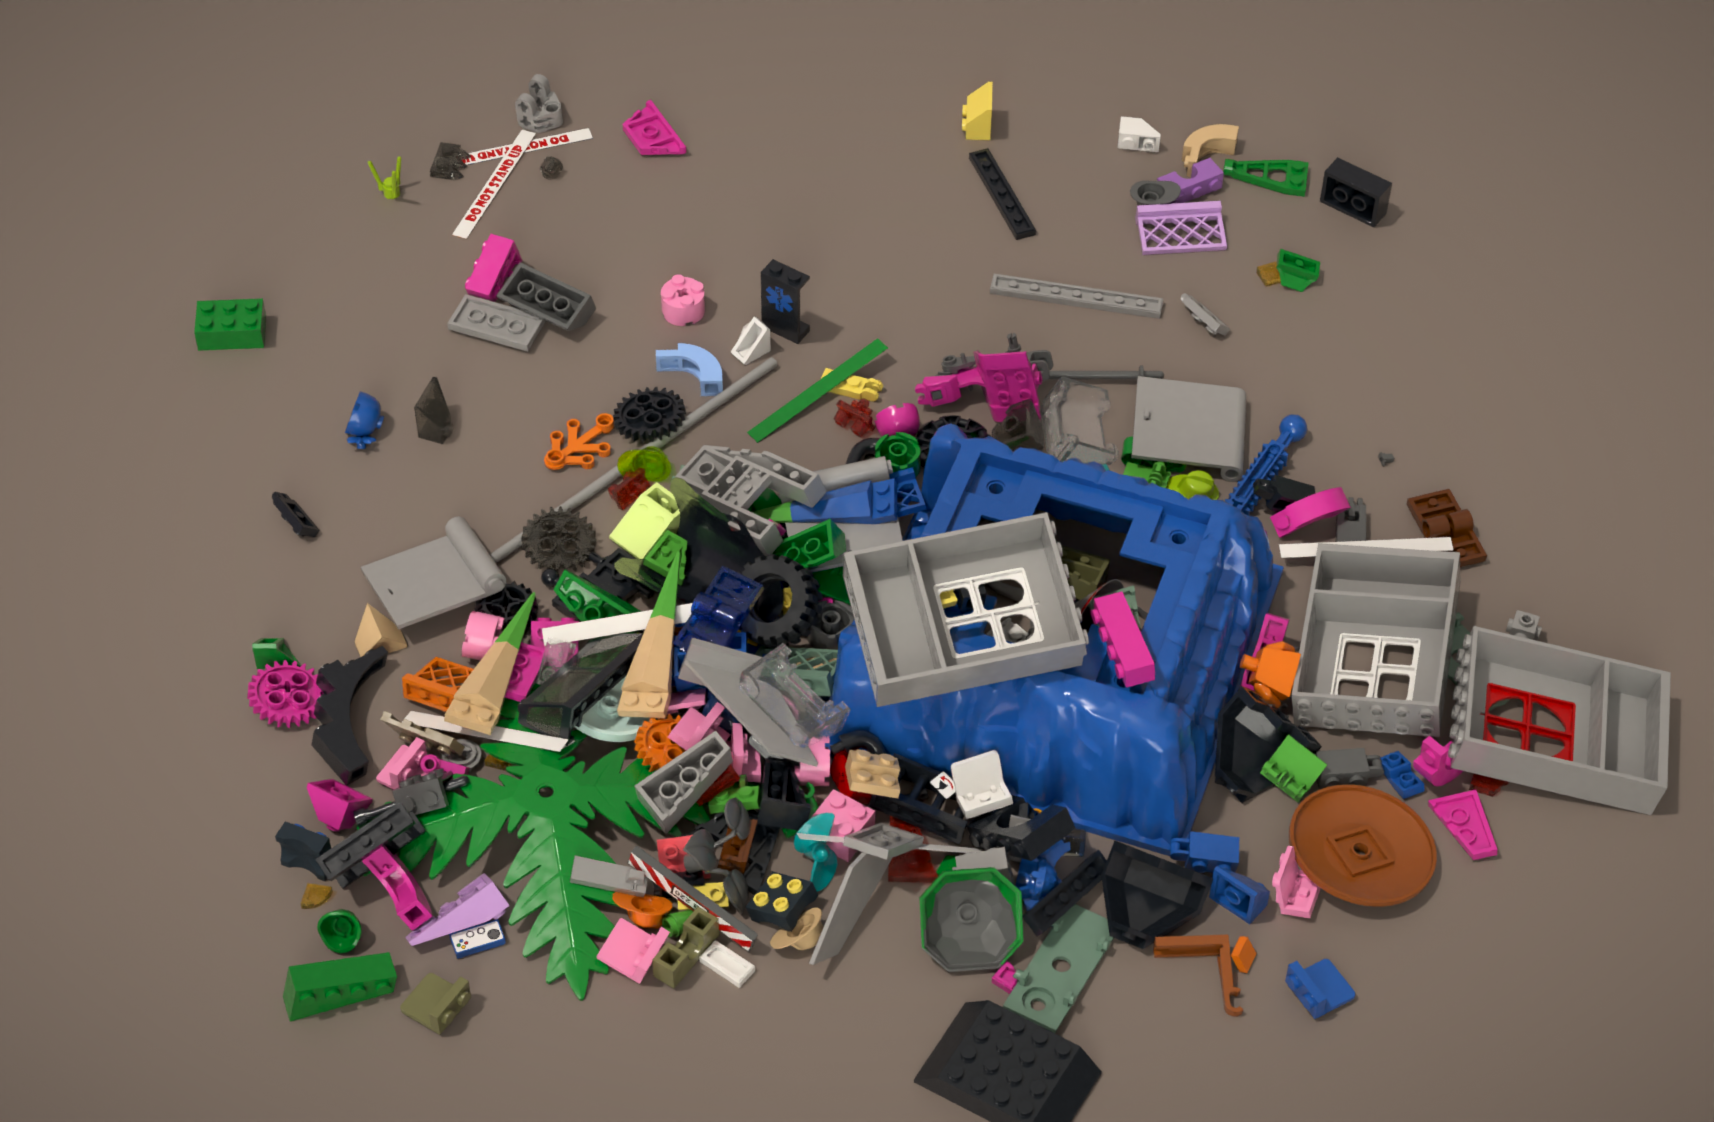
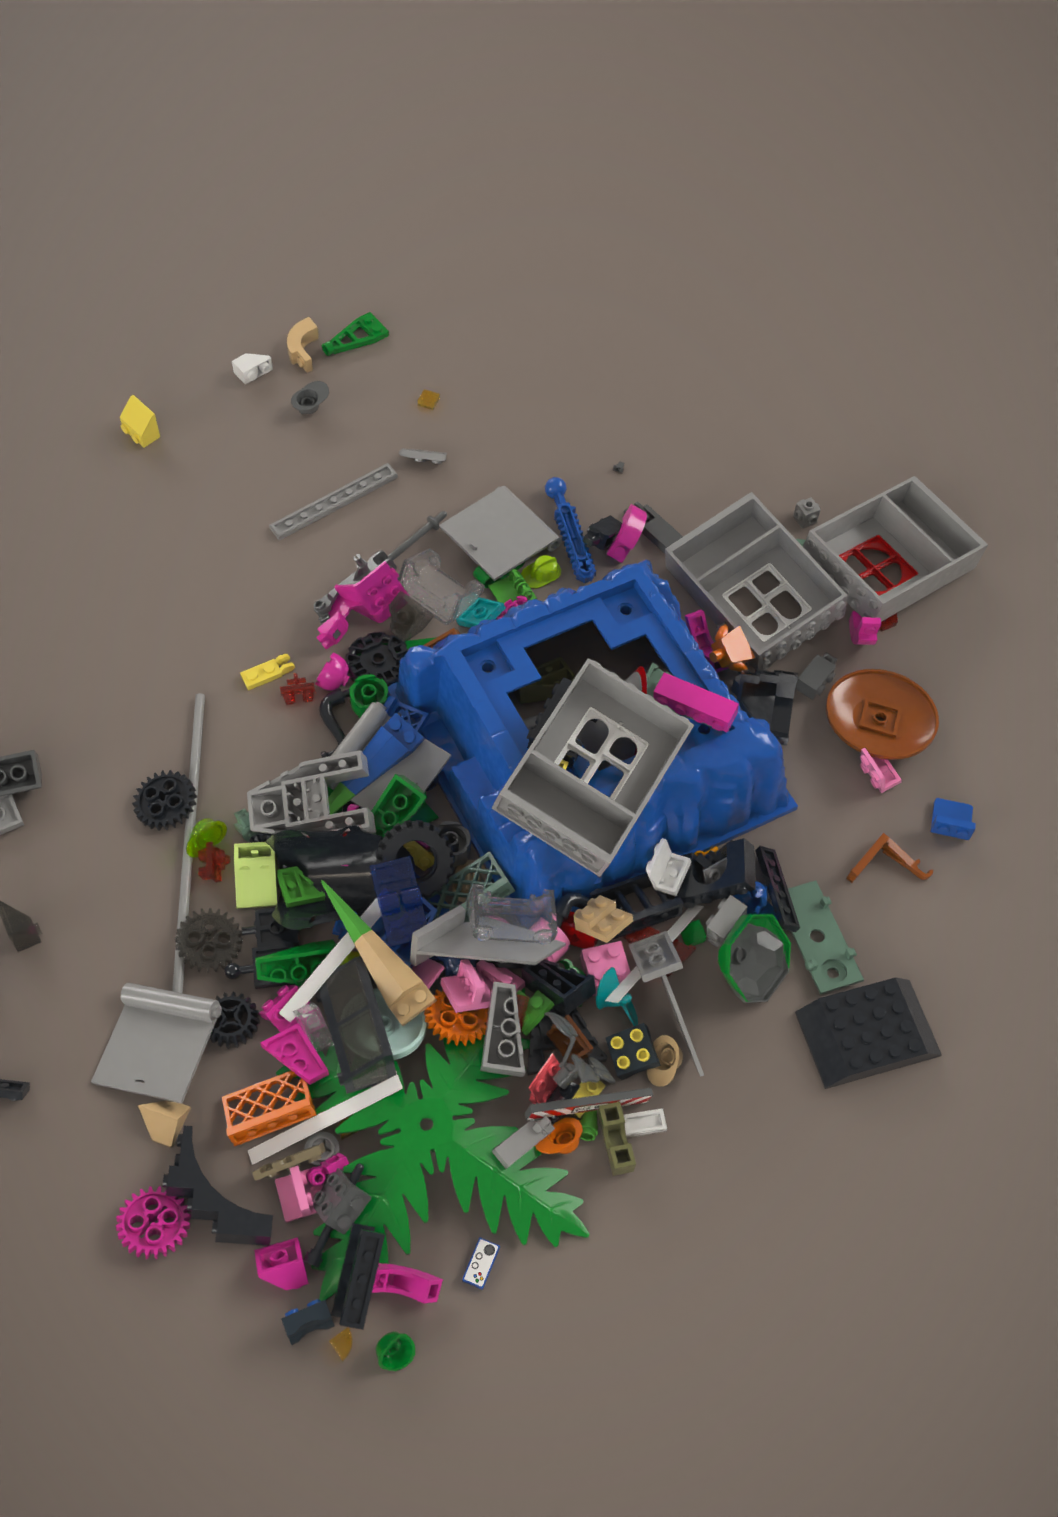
camera: 50 degrees left, 10 degrees up
(270, 650) = (106, 1201): green slope -> none
(336, 984) = (438, 1390): green wedge -> none
(436, 1001) = (510, 1333): olive bracket -> none
(477, 904) = (454, 1251): lavender wedge -> none
(481, 634) = (243, 1054): bright pink brick -> none
(482, 694) = (302, 1095): tan plate -> none
(557, 458) = (138, 863): orange plant -> none
(631, 949) = (588, 1171): bright pink bracket -> none
(682, 300) = (93, 702): bright pink brick -> none
(694, 361) = (155, 736): light blue arch -> none
(752, 342) = (170, 693): white slope -> none
(782, 301) = (173, 648): black panel -> none
(817, 390) = (253, 693): green sticker -> none
(944, 784) = (637, 885): white sticker -> none
(1002, 194) = (211, 467): black tile -> none
(1004, 977) = (799, 974): dark pink tile -> none
(1149, 895) = (816, 848): black panel -> none
(1180, 214) = (334, 402): lavender fence -> none
(1204, 179) = (322, 365): medium lavender arch -> none
(1206, 851) = (813, 792): blue brick -> none
(1238, 894) = (859, 802): blue slope -> none
(1243, 954) = (895, 833): orange tile -> none
(1293, 768) = (798, 699): bright green hinge -> none
(1296, 270) = (443, 385): green slope -> none
(1310, 549) = (681, 525): white sticker -> none
(1355, 192) = (423, 310): black brick -> none
(1399, 774) = (845, 655): blue slope -> none
(1441, 516) = (700, 483): reddish brown plate -> none
(1466, 822) = (907, 652): dark pink wing -> none

